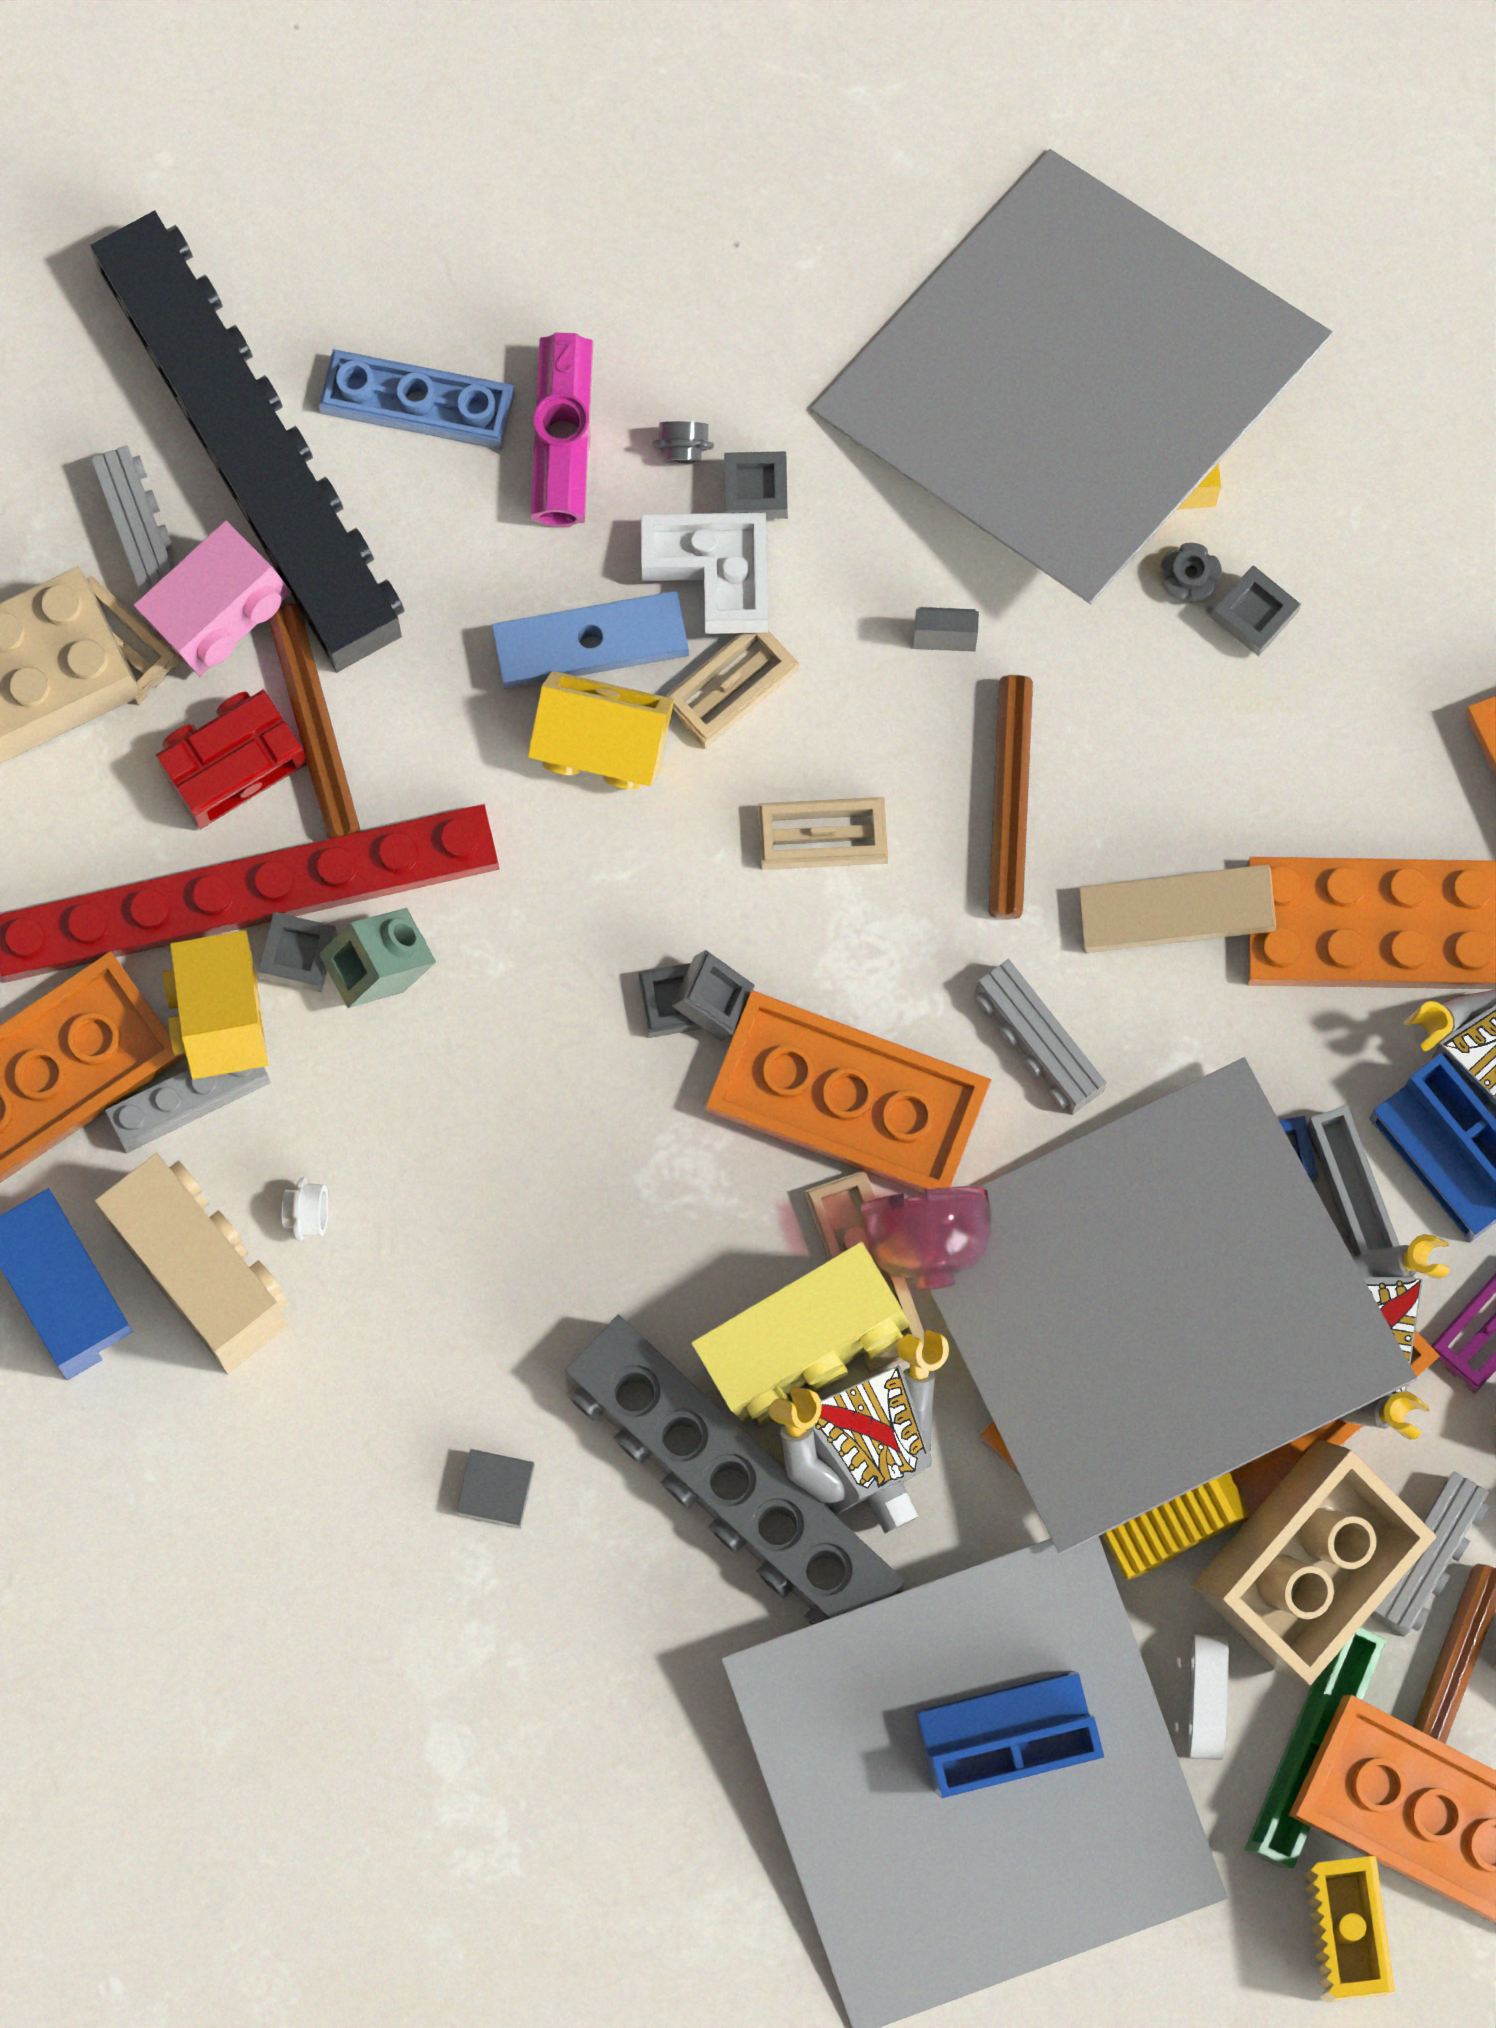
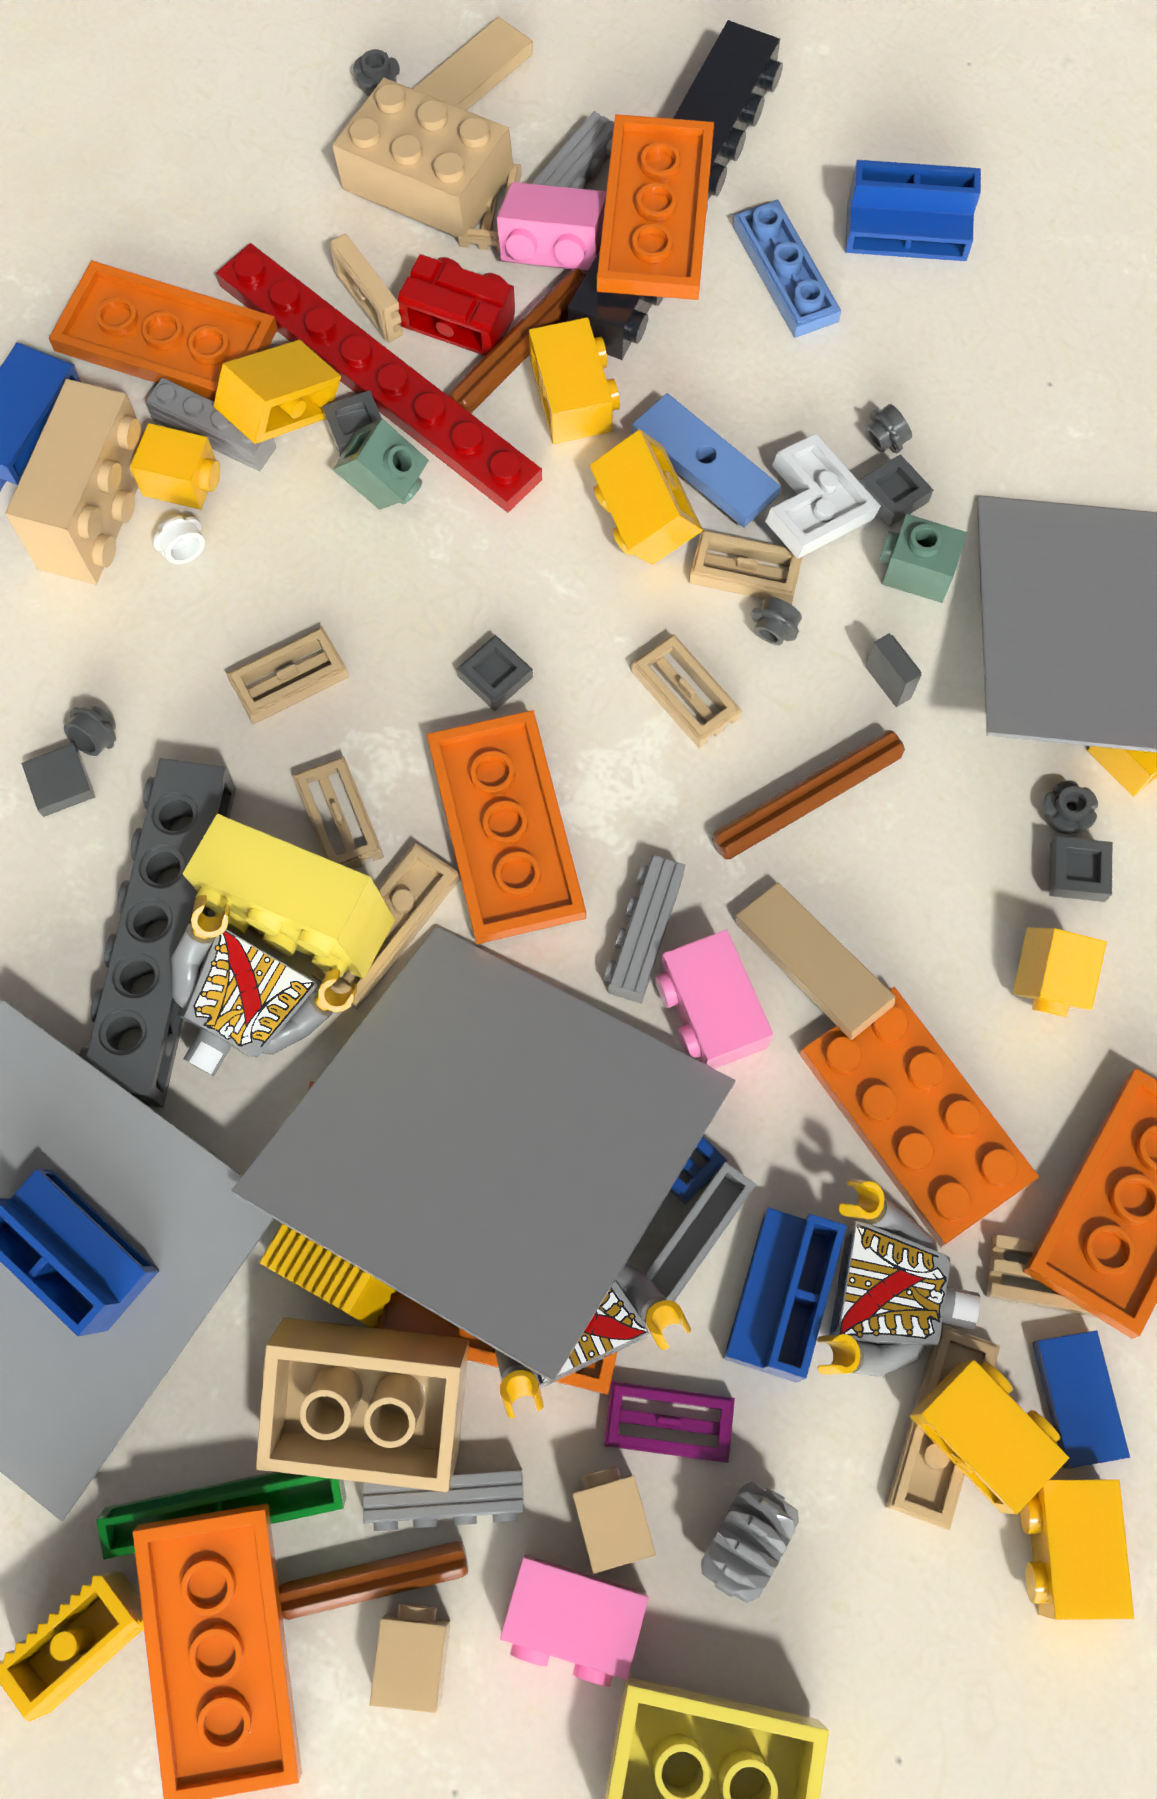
camera: 55 degrees right, 5 degrees down
(141, 835) = (366, 288): none -> tan tile
(231, 1159) = (175, 466): none -> yellow brick
(288, 487) = (655, 207): none -> orange plate
(406, 705) = (572, 380): none -> yellow brick
(453, 233) = (912, 210): none -> blue piece
(466, 1424) = (90, 730): none -> dark grey plate
(530, 1252) = (292, 682): none -> tan tile
(562, 464) = (834, 353): dark pink piece -> none
(713, 995) = (511, 688): dark grey tile -> none
(719, 1270) = (353, 855): none -> tan tile
(814, 699) = (776, 621): none -> dark grey plate
(848, 515) = (922, 557): none -> sand green brick
(928, 1233) = (430, 938): clear pink cylinder -> none
(1155, 1026) = (713, 1001): none -> bright pink brick
(1208, 1696) = (209, 1393): white beam -> none
(1339, 705) = (1059, 970): none -> yellow brick

